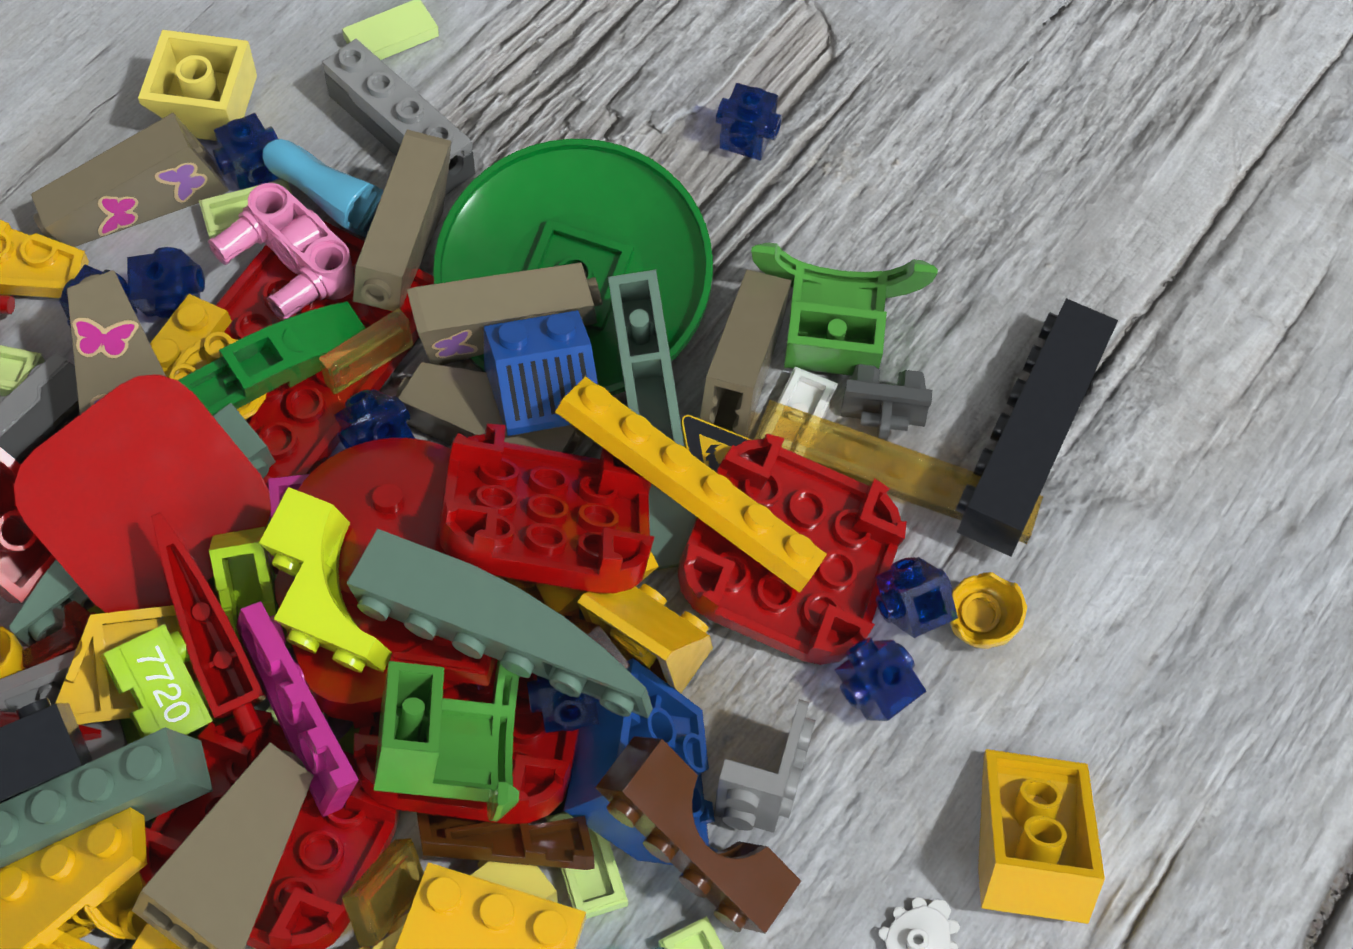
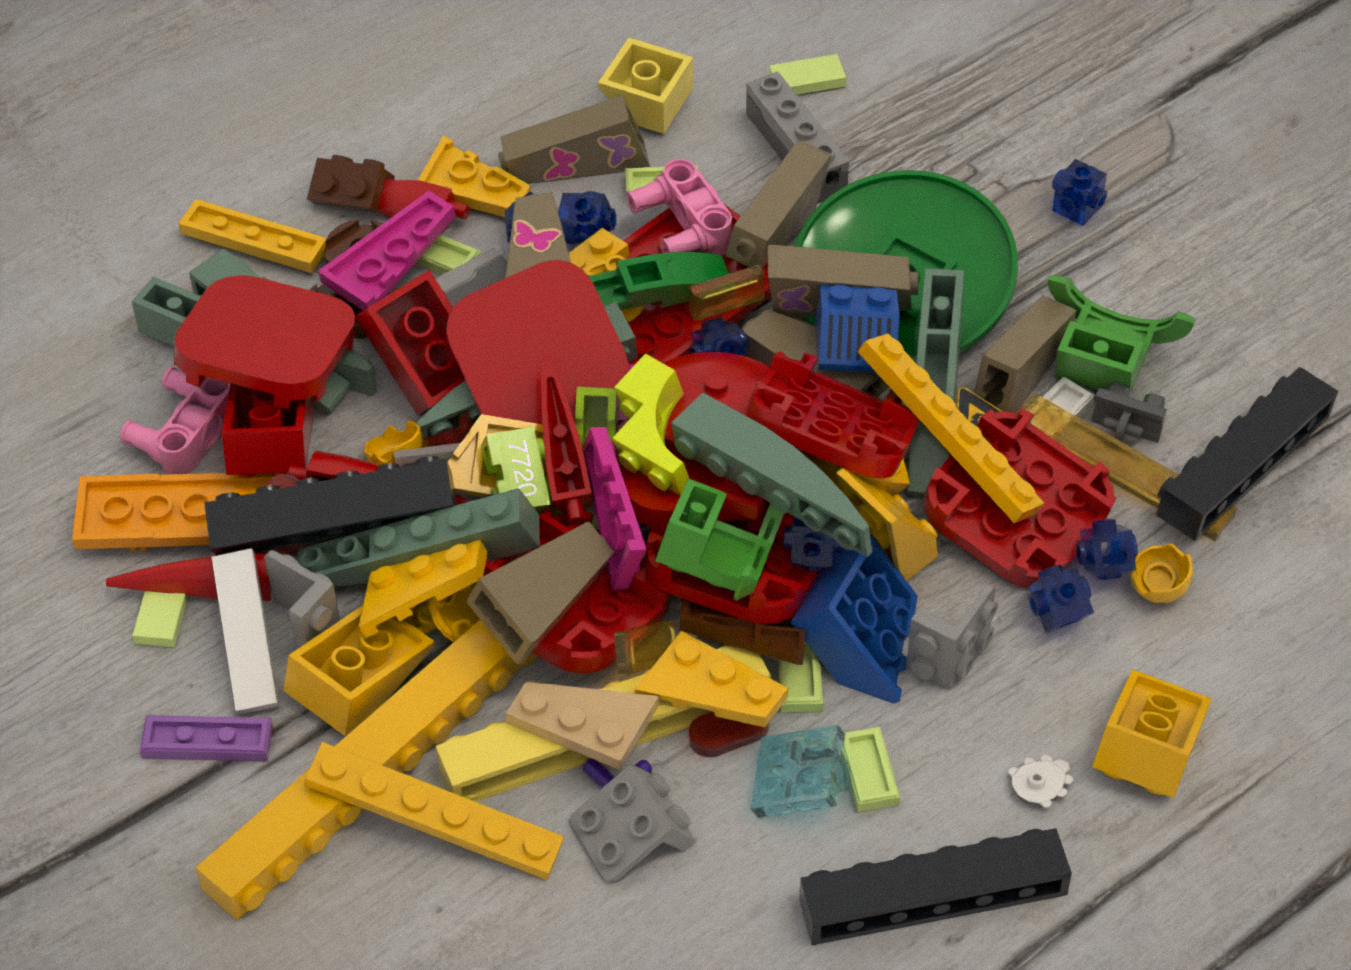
camera: 20 degrees right, 10 degrees down
(241, 151) = (671, 137): clear blue brick -> none
(340, 195) = (733, 178): medium azure piece -> none
(654, 793) = (858, 616): reddish brown arch -> none

